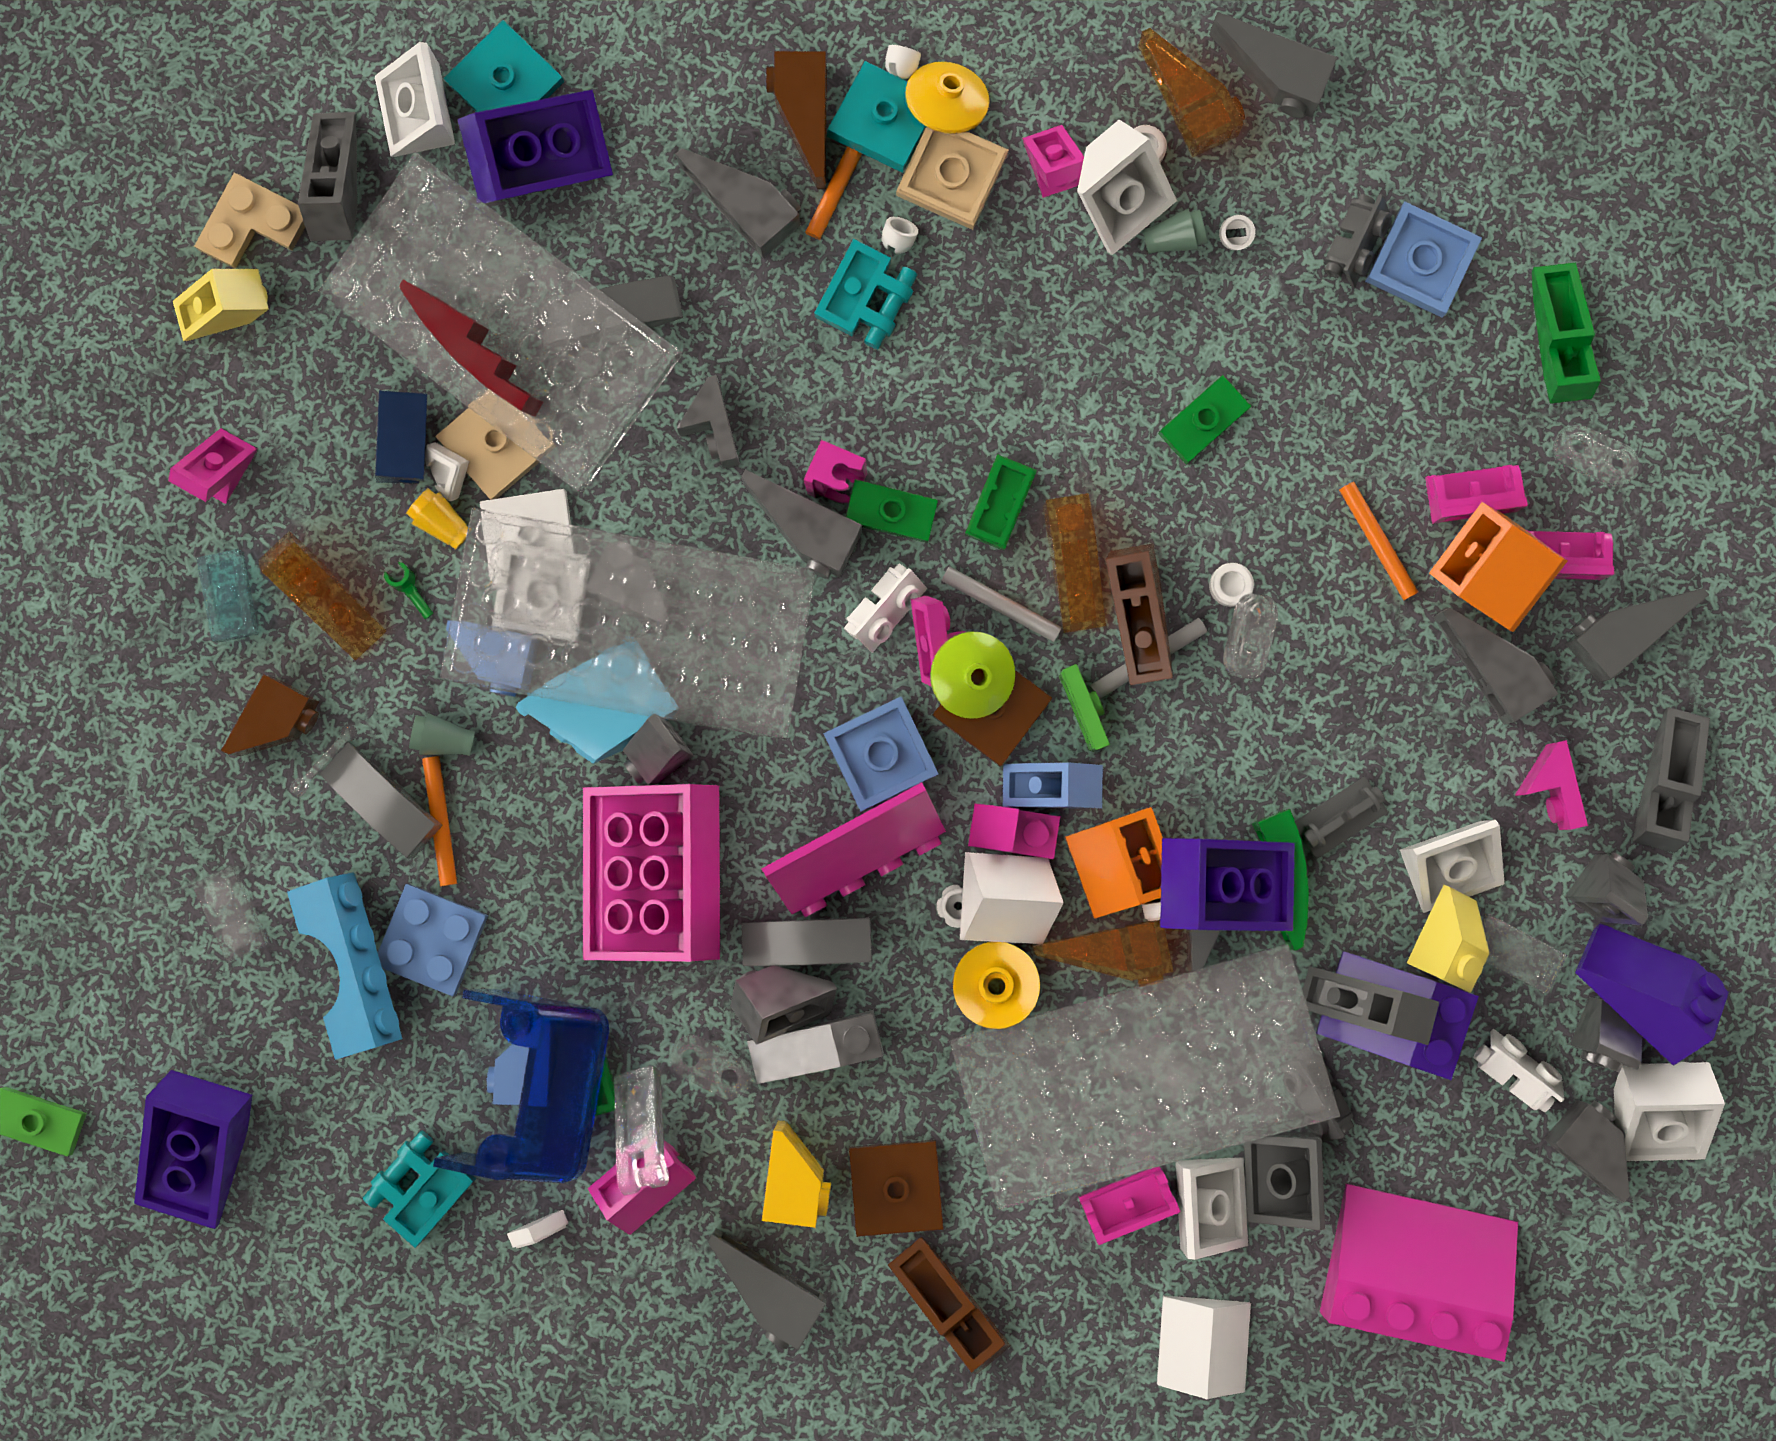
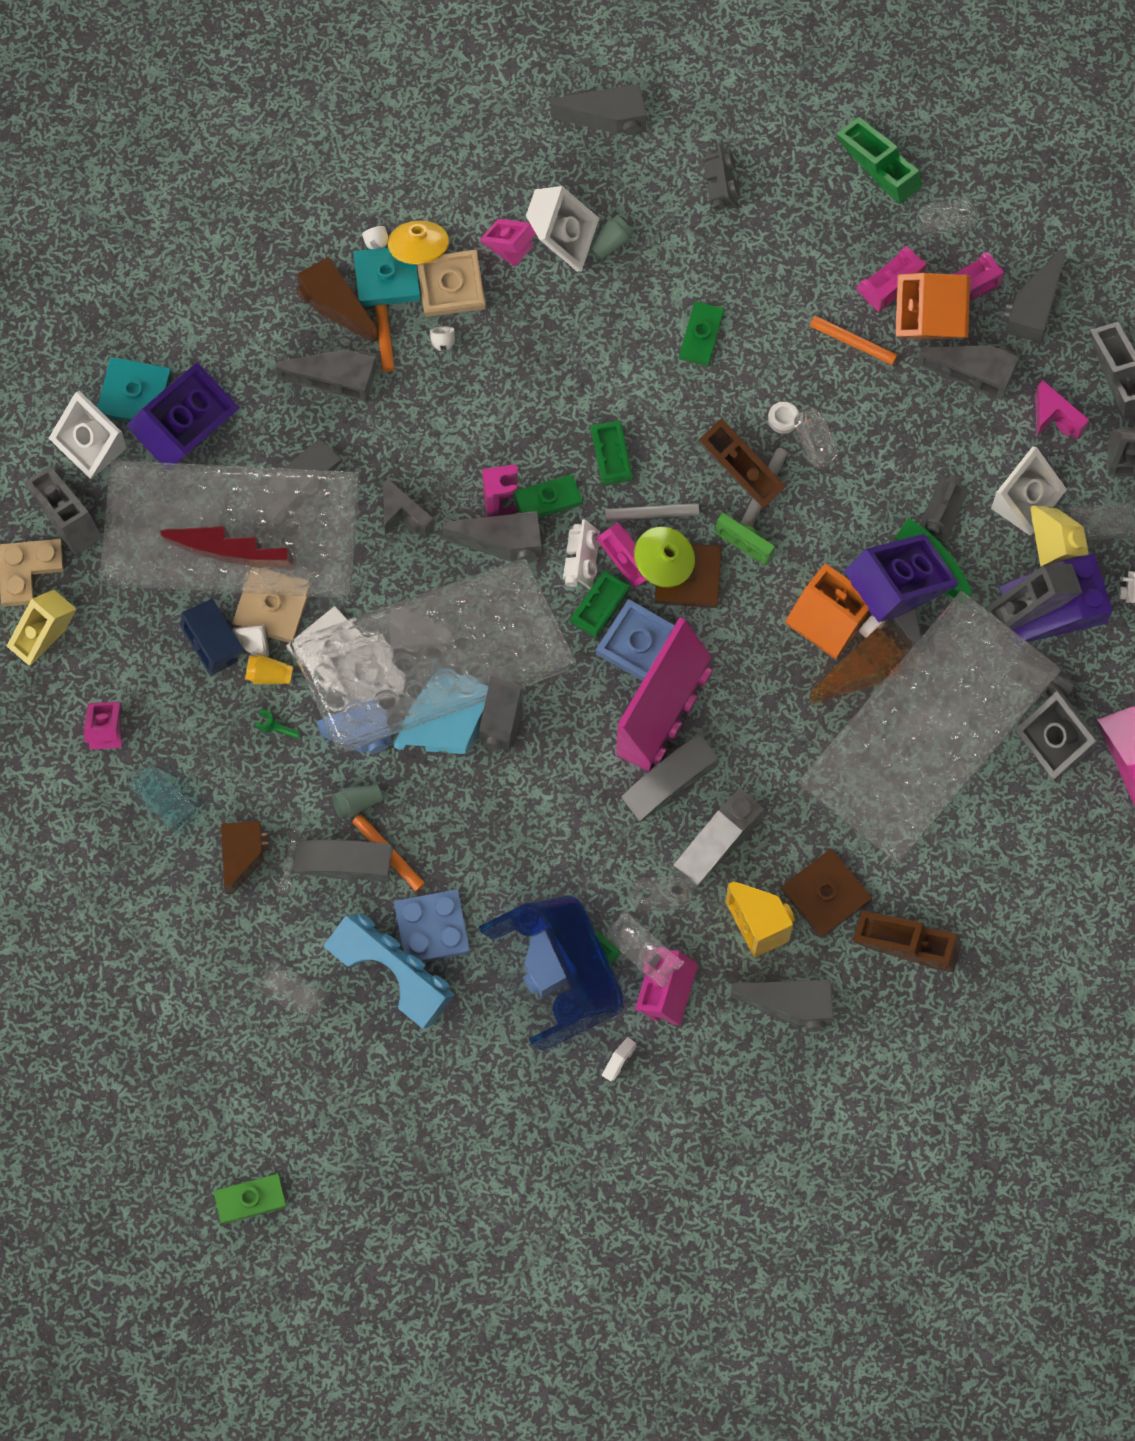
camera: 40 degrees left, 15 degrees down
(190, 1147) = (365, 1149): dark purple slope -> none
(320, 595) = (221, 759): clear orange slope -> none
(428, 1198) = (537, 1083): teal plate -> none
(651, 873) = (544, 798): dark pink slope -> none
(780, 1001) = (677, 821): flat silver slope -> none
(853, 288) = (435, 383): teal plate -> none
(866, 679) = (600, 604): none -> green plate
(946, 908) = (751, 695): white plate -> none
(993, 962) = (803, 718): yellow dish -> none
(1008, 898) = (776, 677): white slope -> none
(1014, 831) = (751, 637): dark pink slope -> none
(1052, 785) = (756, 594): medium blue slope -> none
(1075, 562) = (679, 458): clear orange slope -> none
(1129, 1204) = (974, 811): dark pink hinge -> none
(1193, 96) = (566, 155): clear orange slope -> none
(1203, 1346) = (1077, 866): white slope -> none
(1211, 1206) = (1022, 780): white slope -> none
(1237, 222) = (642, 211): white hinge -> none
(1423, 259) = (768, 167): medium blue plate -> none

